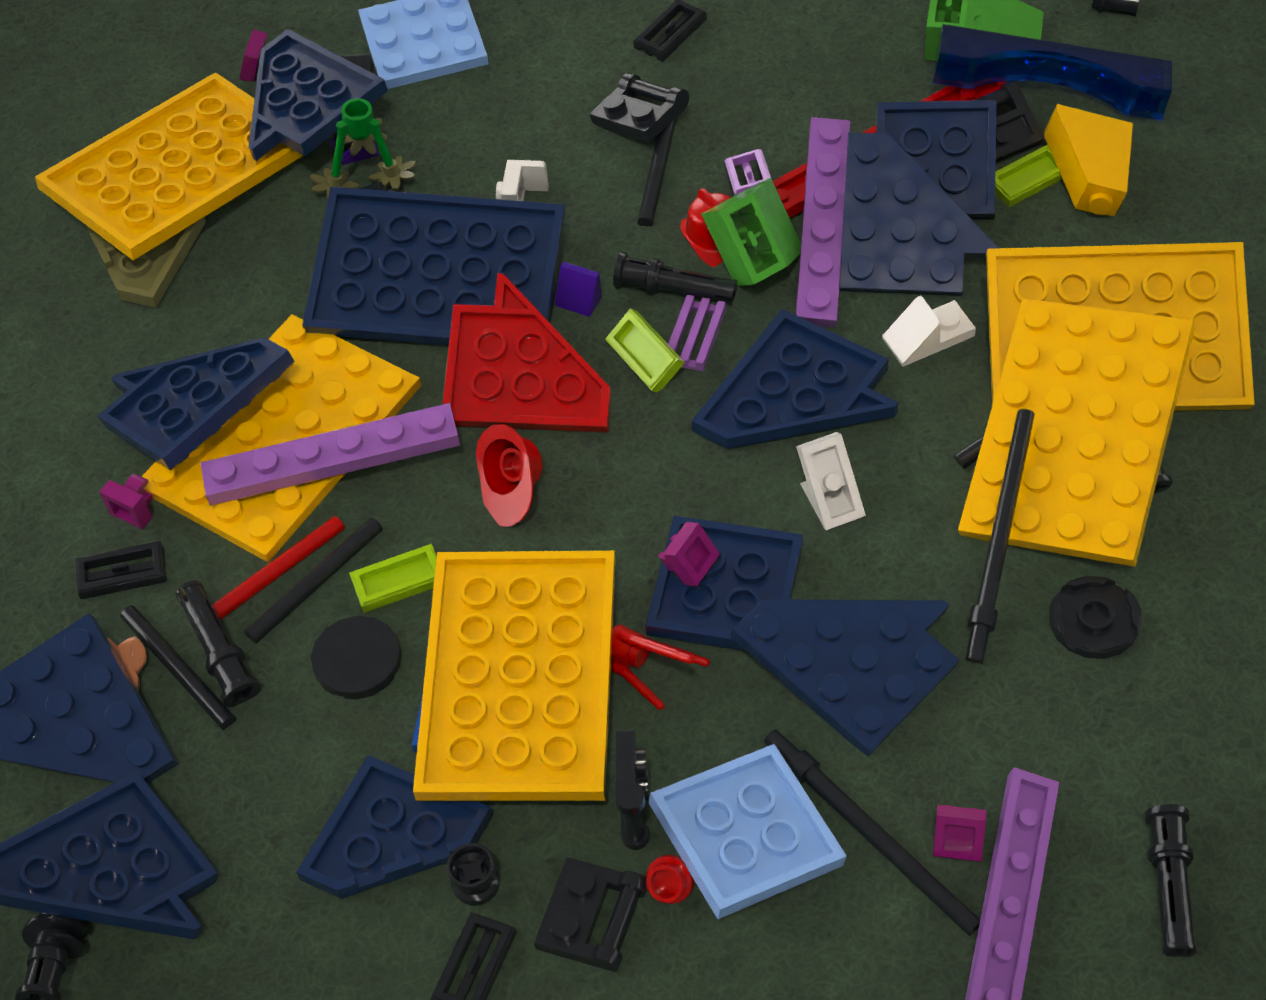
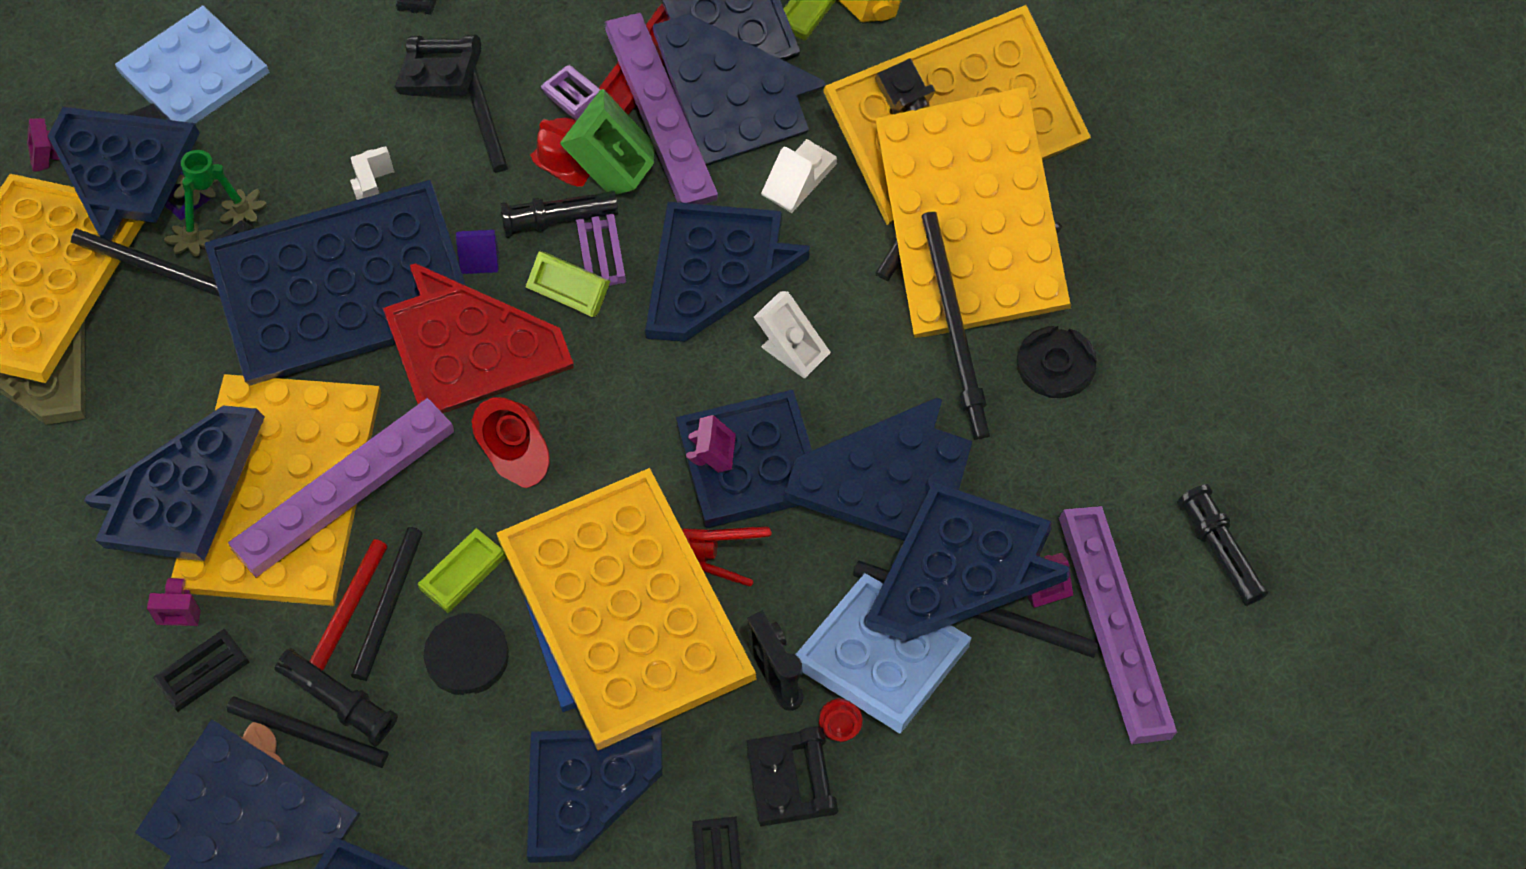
camera: 30 degrees left, 5 degrees up
(273, 182) = (144, 261): none -> black bar
(469, 864) = (678, 779): black wheel -> none
(871, 773) = (962, 562): none -> dark blue wing
(1068, 278) = (904, 87): none -> black bracket

